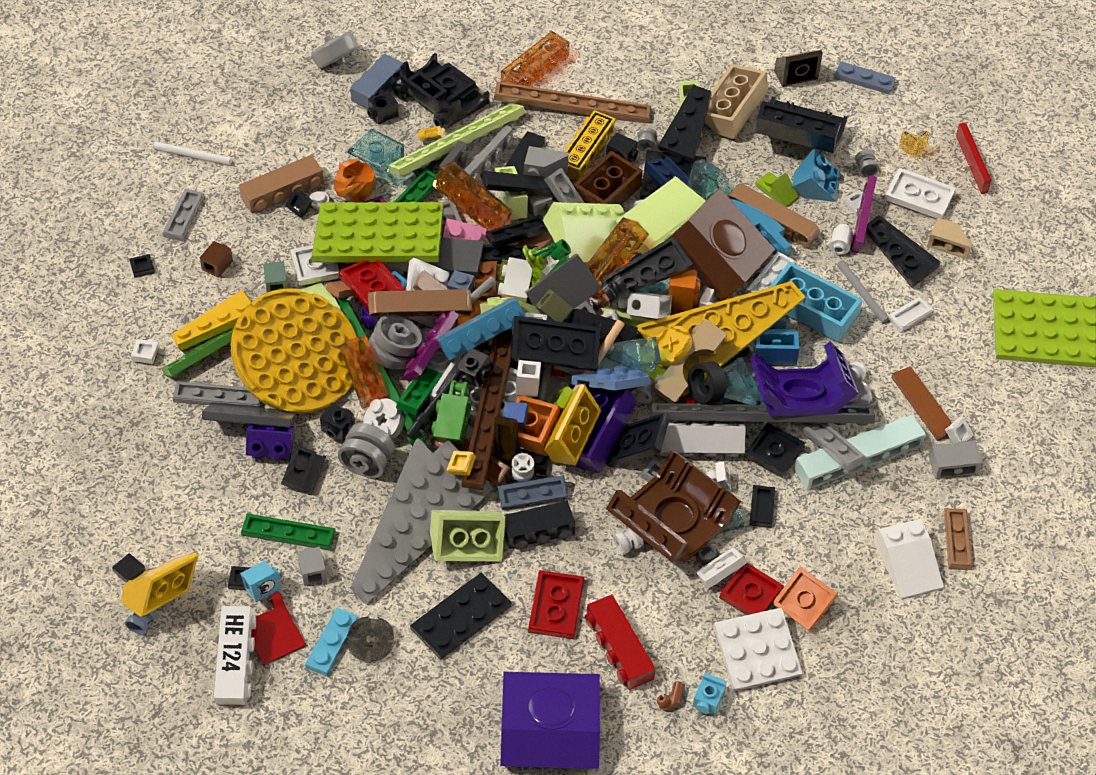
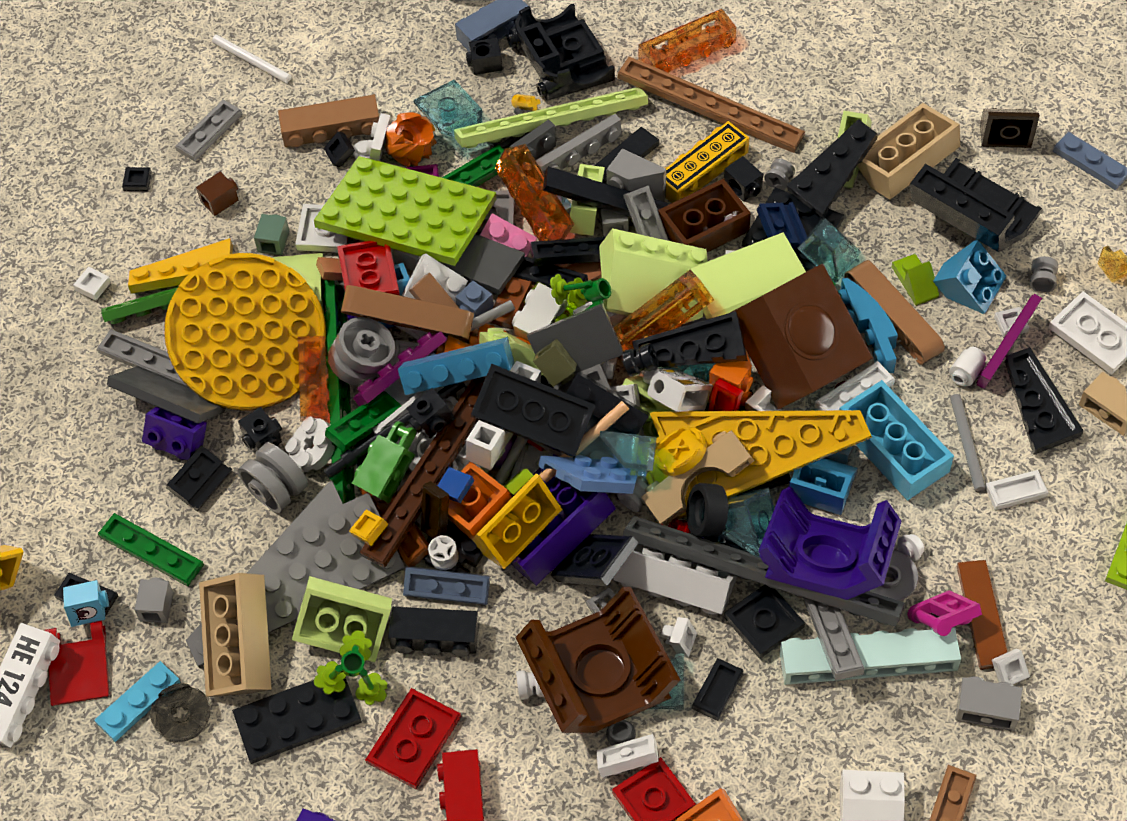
camera: 25 degrees right, 5 degrees up
(328, 181) = (376, 146): none -> white plate
(391, 569) = (235, 635): none -> tan slope
(494, 557) = (354, 654): none -> lime plant
(685, 300) = (725, 397): none -> red tile
(900, 406) = (949, 606): none -> dark pink plate

